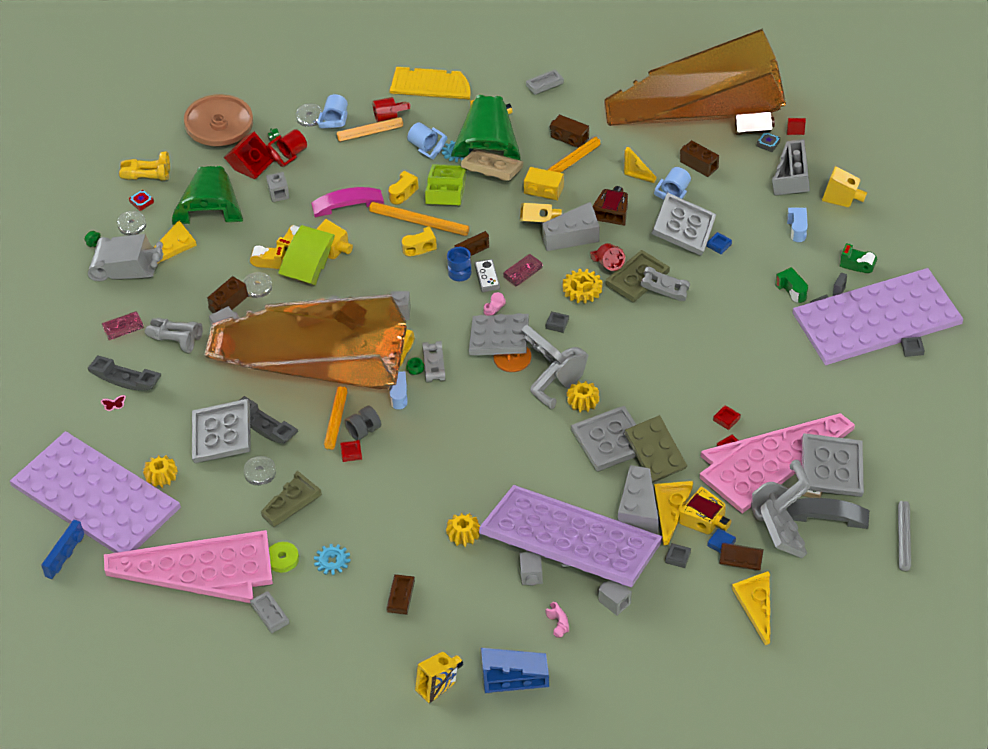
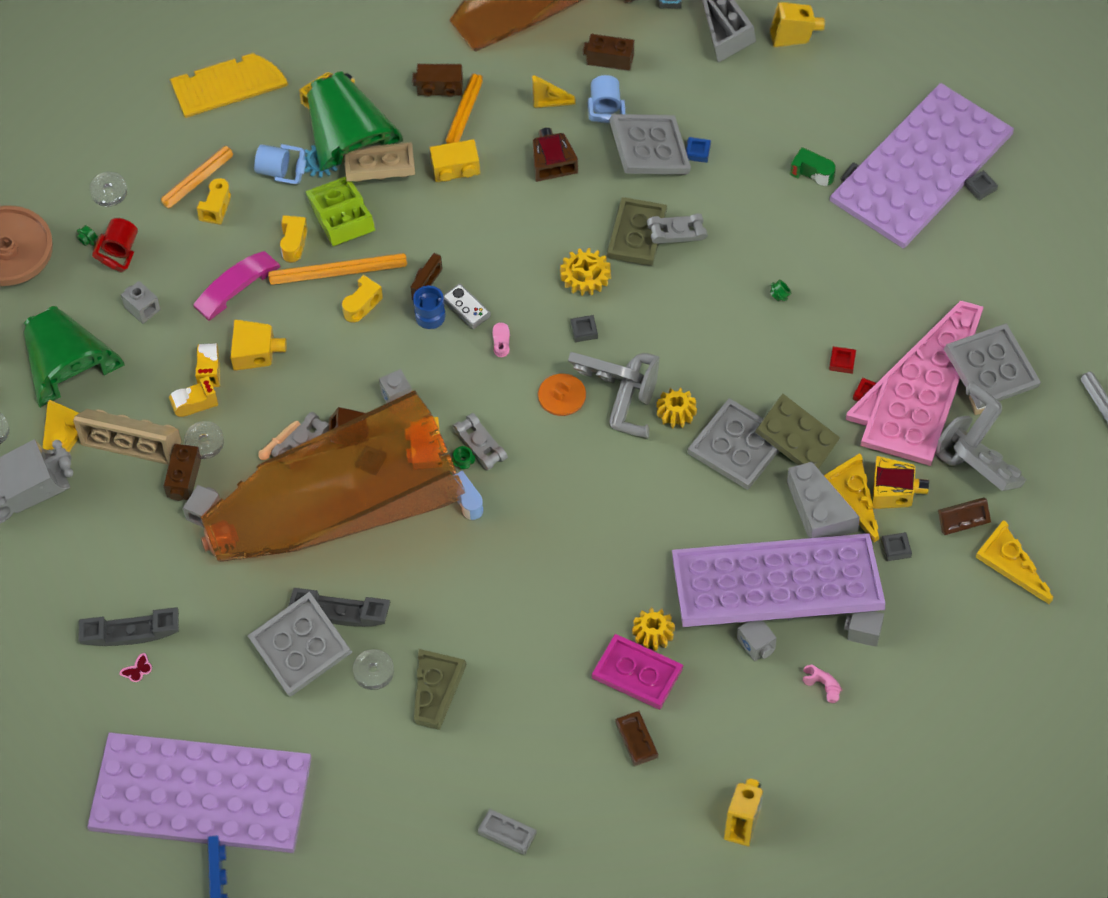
camera: 30 degrees left, 10 degrees up
(122, 325) = (77, 566): clear pink plate -> none
(160, 471) = (252, 722): yellow gear -> none
(182, 332) = (129, 551): light grey piece -> none
(207, 258) = (126, 435): none -> tan slope
(211, 567) = (403, 811): bright pink wing -> none
(249, 156) = (76, 276): red slope -> none
(283, 564) = (467, 750): lime piece -> none
(306, 255) = (244, 376): lime slope -> none
(332, 552) = (524, 727): medium azure gear -> none
(334, 112) = (141, 174): light blue piece -> none
(335, 418) = (415, 563): light orange axle -> none
(351, 451) = (460, 595): red tile -> none
(365, 421) = (455, 555): dark grey wheel -> none
(369, 148) = (217, 202): none -> yellow leg
(387, 109) = (204, 141): red piece -> none
(433, 552) = (637, 671): none -> dark pink plate
(498, 334) = (534, 375): light grey plate -> none
(513, 670) = (819, 765): wedge -> none
(522, 270) = (504, 281): clear pink plate -> none
(530, 212) = (477, 203): yellow torso -> none
(544, 82) = (365, 26): light grey plate -> none
(571, 229) = (527, 204): light grey wedge -> none
(609, 256) = (593, 221): red piece -> none
(712, 353) = (780, 290): none -> green plate
(720, 537) = (929, 507): blue tile -> none
(798, 219) = (771, 86): light blue leg -> none
(831, 510) = (1024, 417): dark grey slope -> none
(840, 284) = (863, 145): dark grey tile -> none
(857, 260) = (861, 105): green leg -> none

